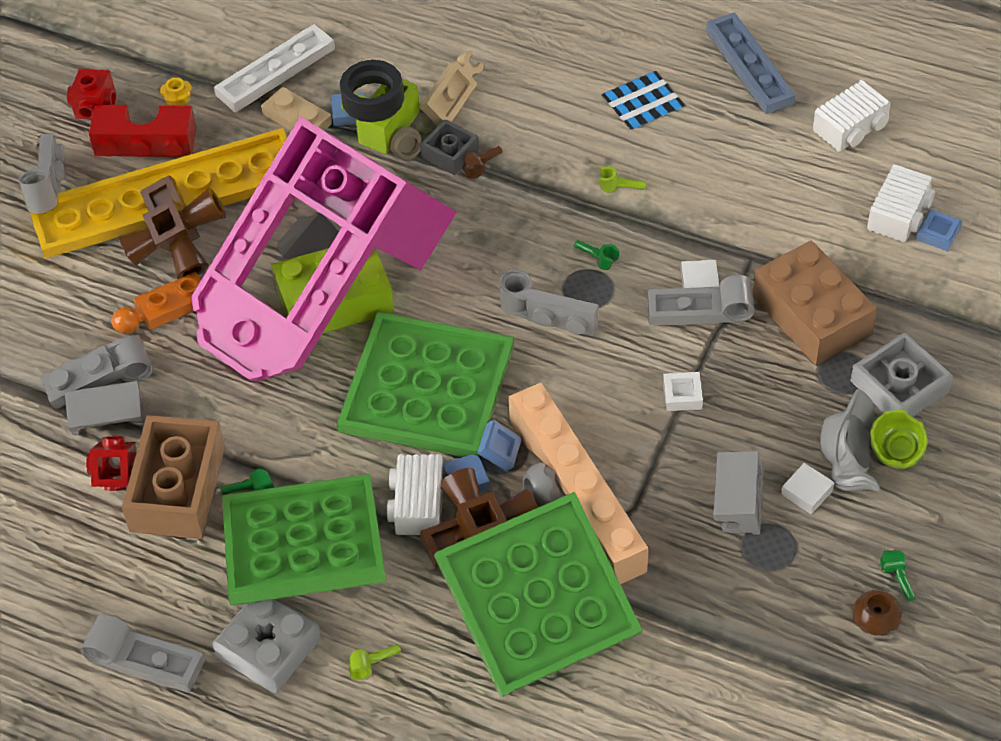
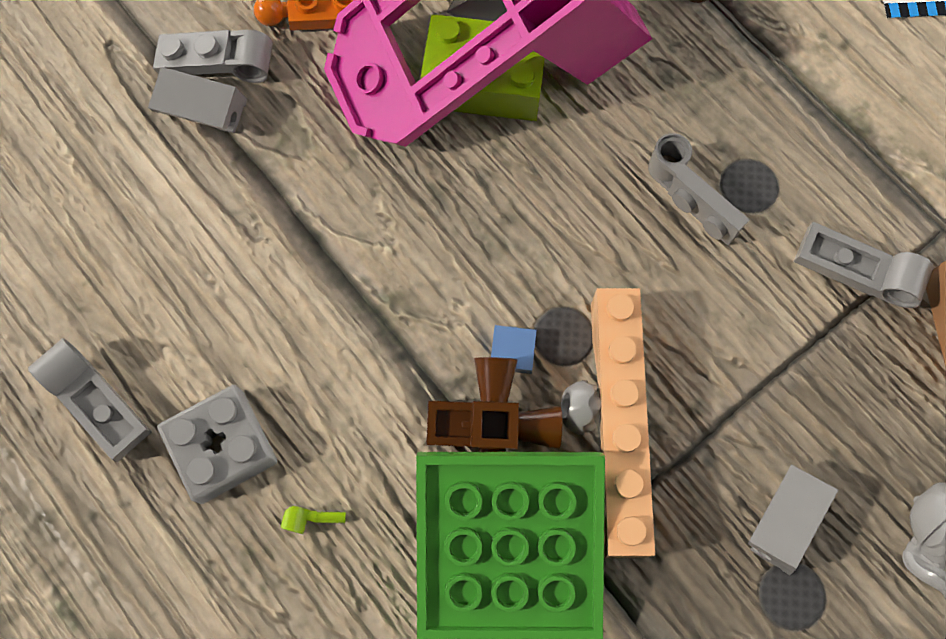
camera: 25 degrees right, 20 degrees up
(103, 469) = (169, 169): red brick -> none
(174, 477) = (217, 212): medium nougat brick -> none
(257, 480) = (305, 255): green hand -> none
(301, 539) = (301, 353): bright green plate -> none
(416, 493) = (449, 350): white brick -> none
(426, 385) = (525, 224): bright green plate -> none
(499, 445) = (563, 333): medium blue tile -> none
(601, 254) = (793, 152): green hand -> none
(610, 182) = (836, 71): lime hand -> none
(682, 391) = (790, 359): white tile -> none
(699, 274) = (877, 228): white tile -> none
(807, 488) = (871, 549): white tile -> none

